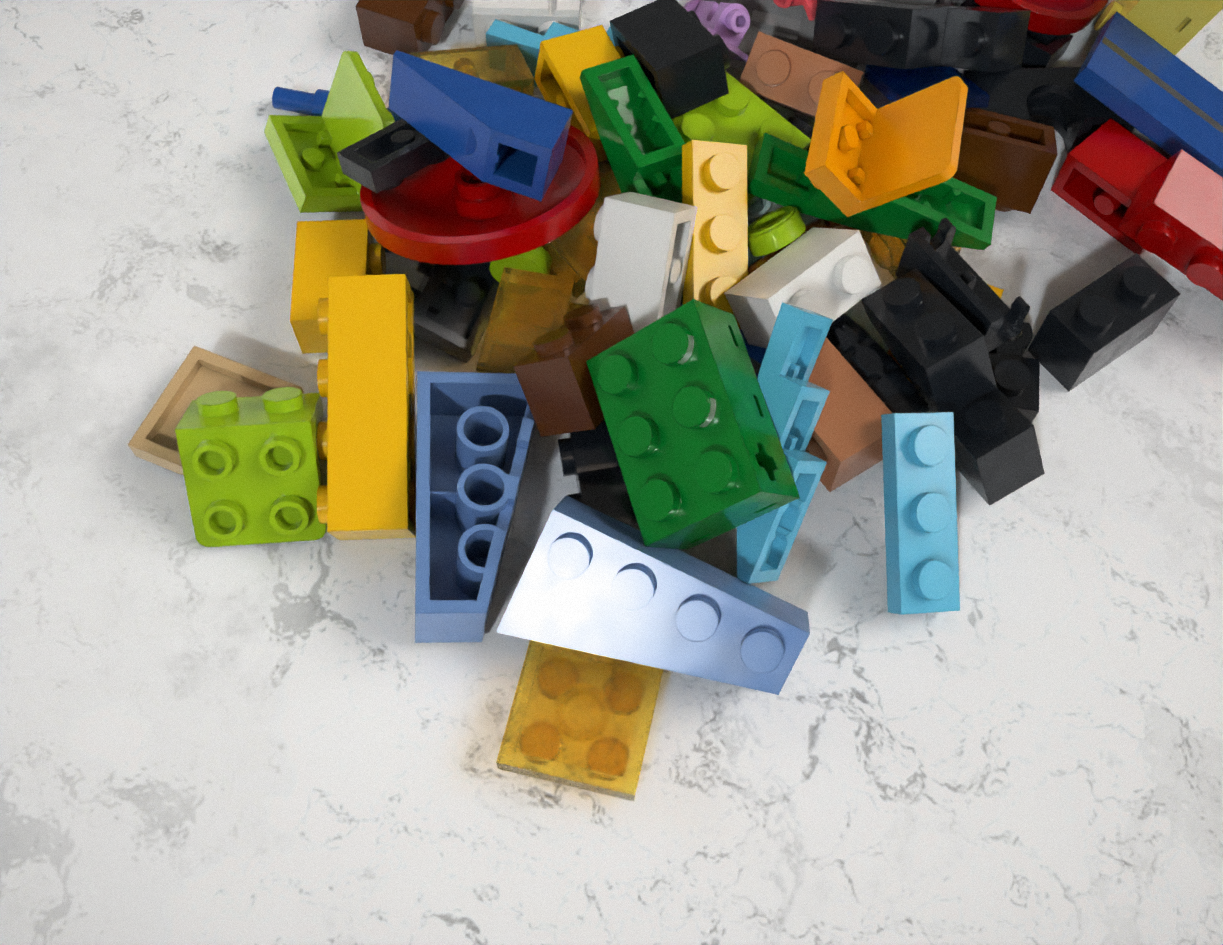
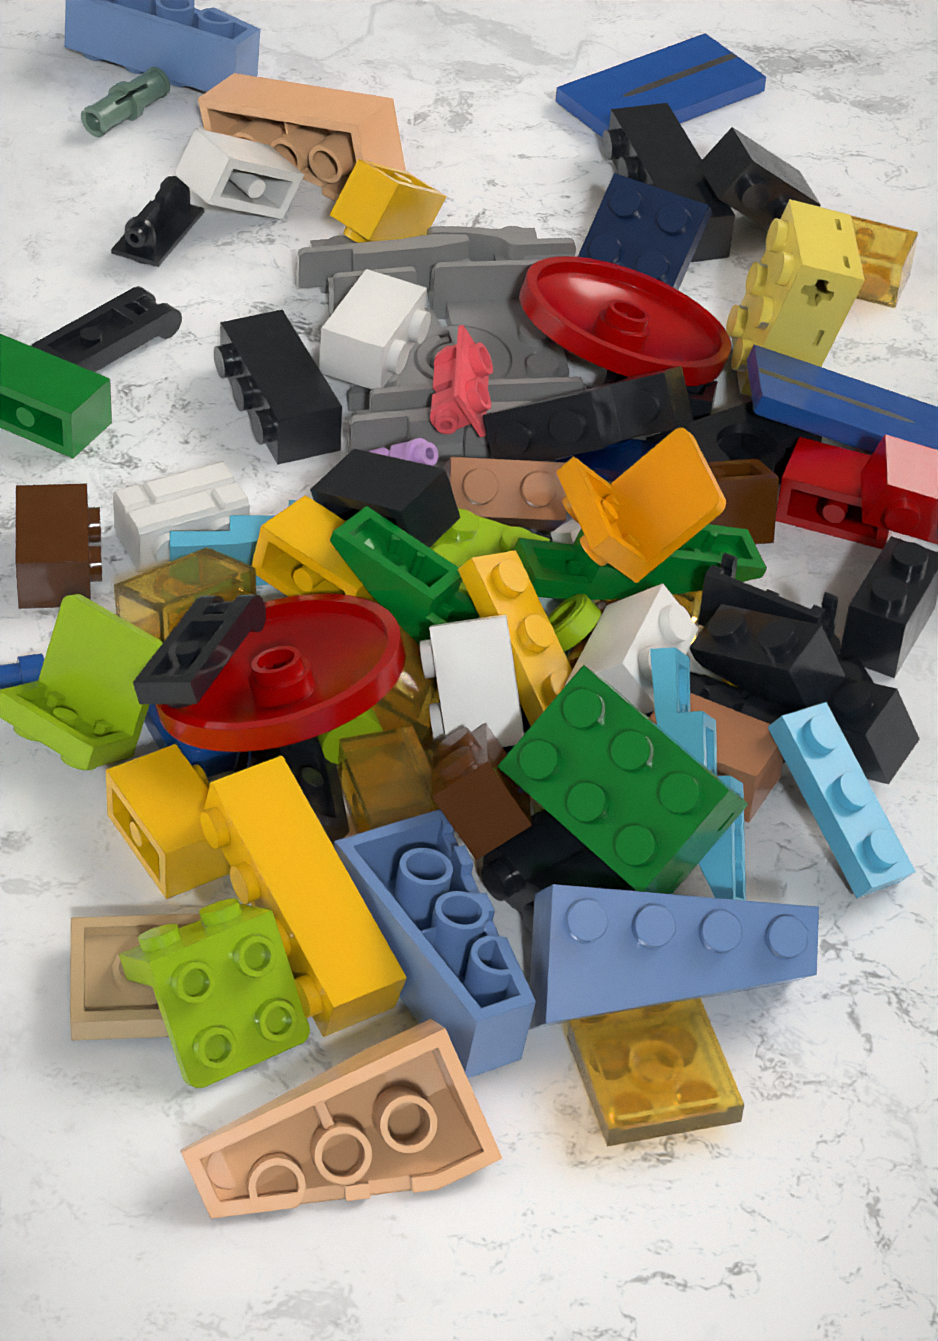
camera: 30 degrees left, 20 degrees down
(303, 653) = (359, 1130): none -> light nougat wedge
(482, 125) = (272, 604): blue slope -> none

